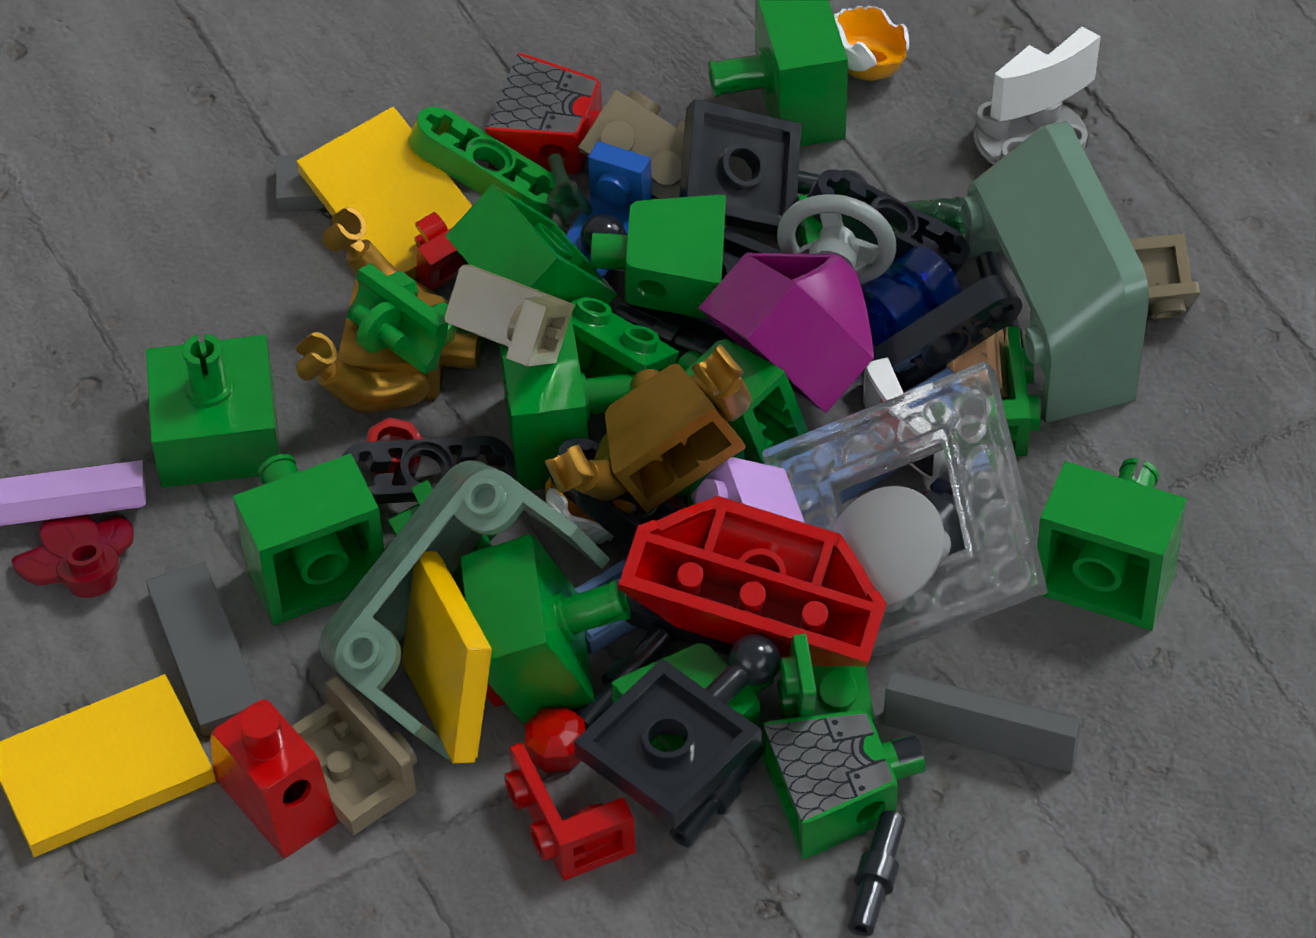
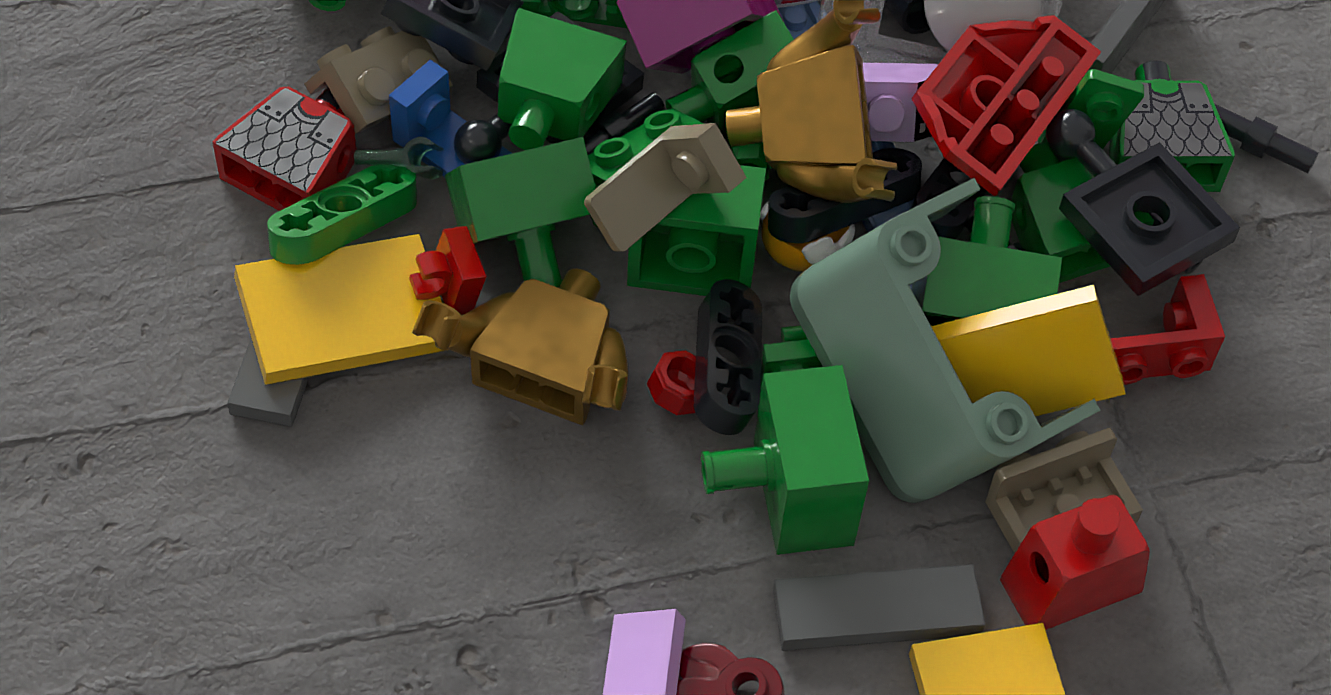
camera: 80 degrees left, 5 degrees up
(212, 409) = (582, 526): green brick -> none
(396, 318) = (569, 309): green hips -> none

